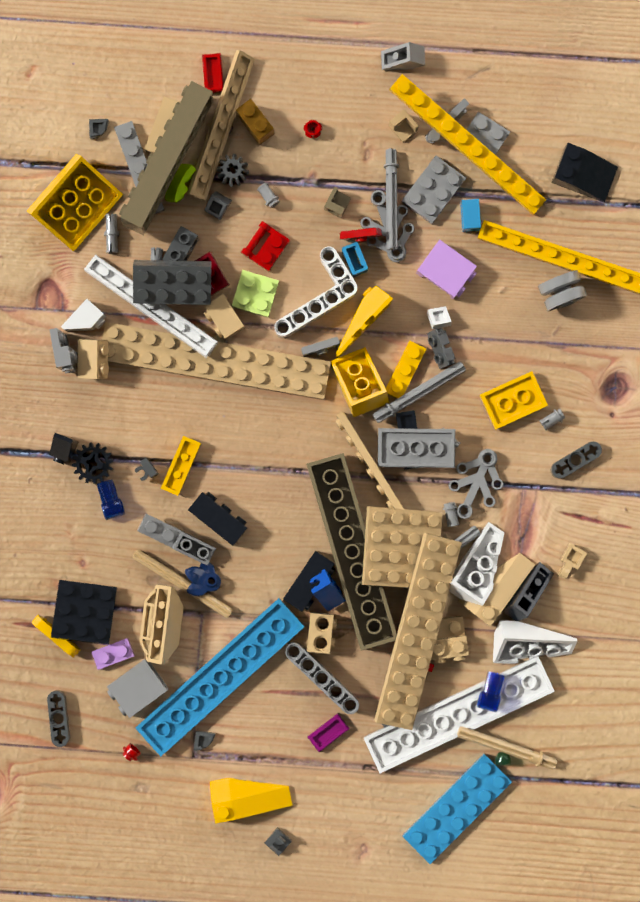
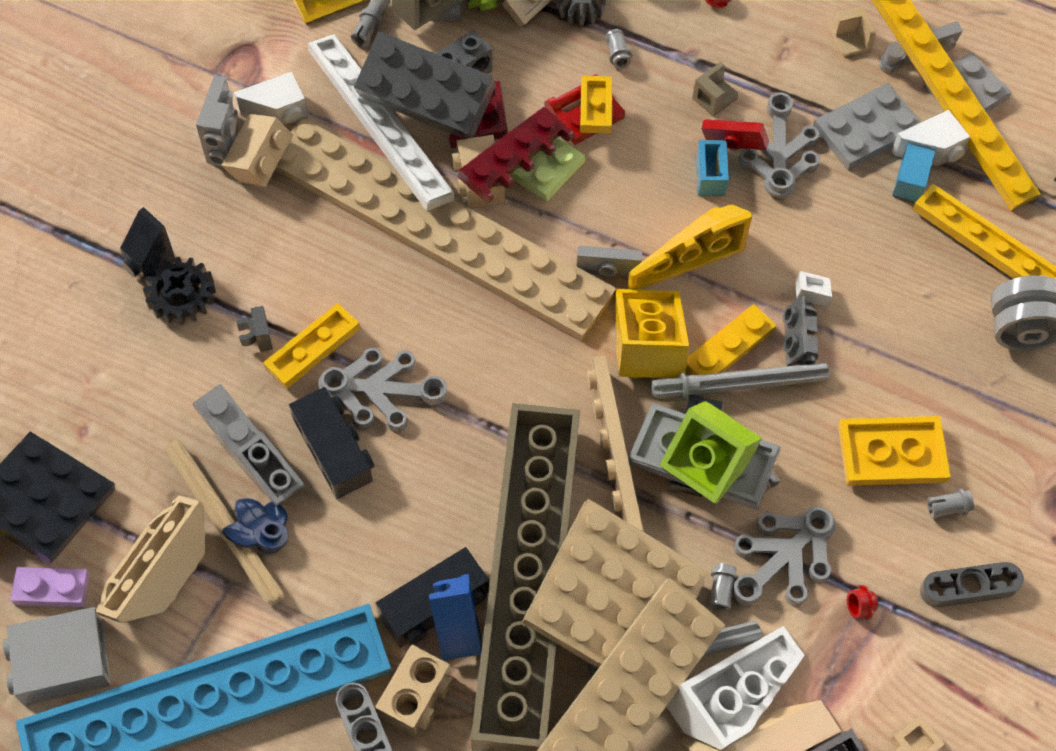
camera: 20 degrees right, 25 degrees down
(111, 504) = (176, 359): clear blue piece -> none
(217, 205) = (538, 38): dark grey slope -> none
(226, 475) = (378, 386): none -> light grey plant
(240, 301) = (513, 151): none -> dark red hinge
(273, 248) = (596, 104): none -> yellow plate
(321, 300) = (675, 160): white beam -> none
(391, 199) = (814, 76): light grey axle -> none
(420, 449) = (710, 451): none -> lime slope
(447, 269) = (851, 227): lavender panel -> none
(476, 187) = (939, 134): none -> white slope
(524, 493) = (862, 602): none -> red plate

